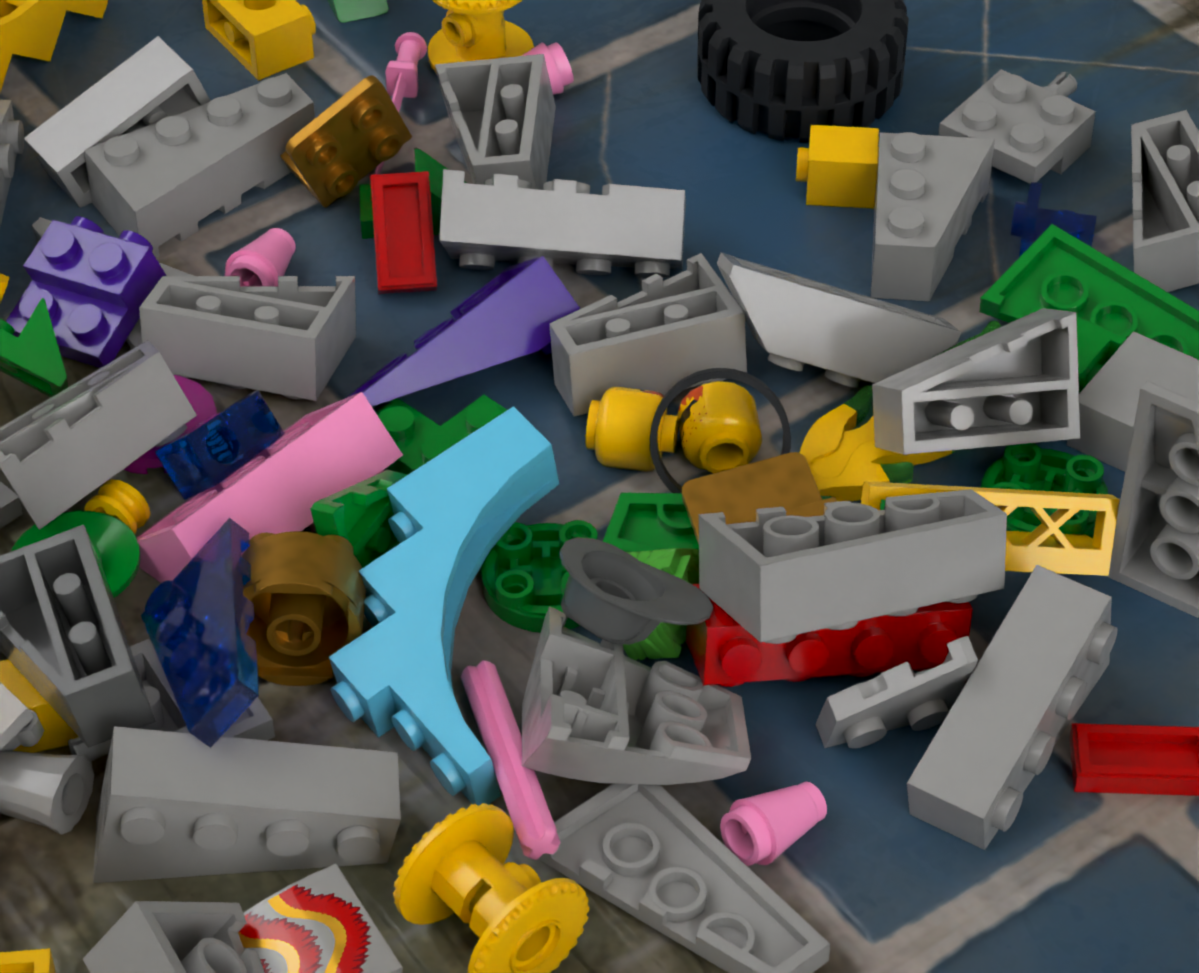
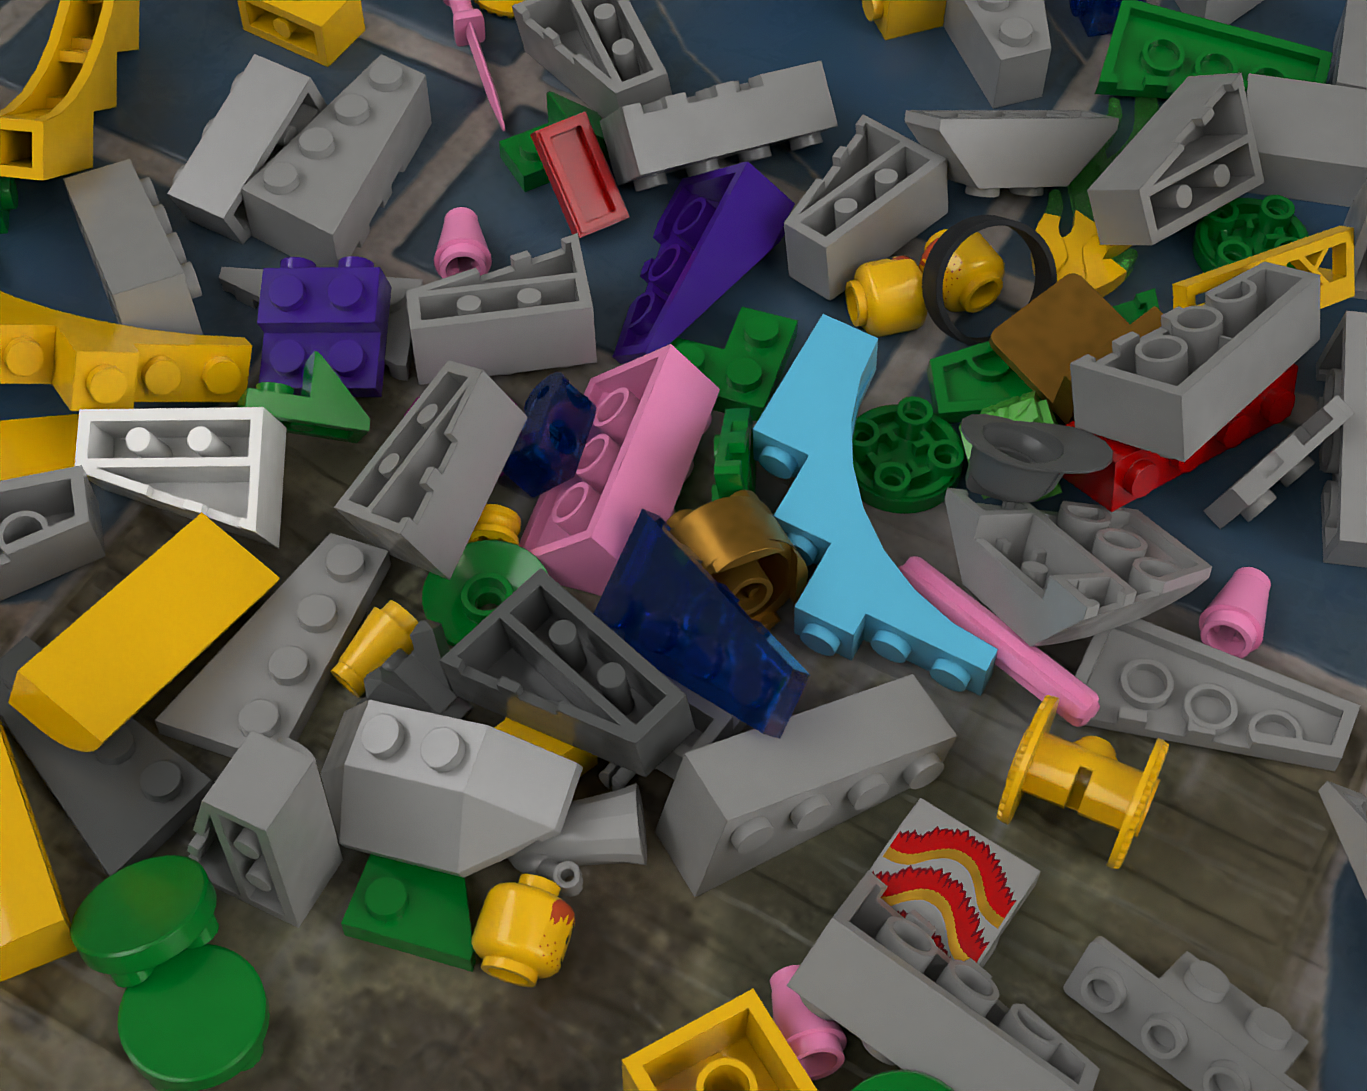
camera: 25 degrees left, 10 degrees up
(346, 141) = (473, 105): pearl gold bracket -> none

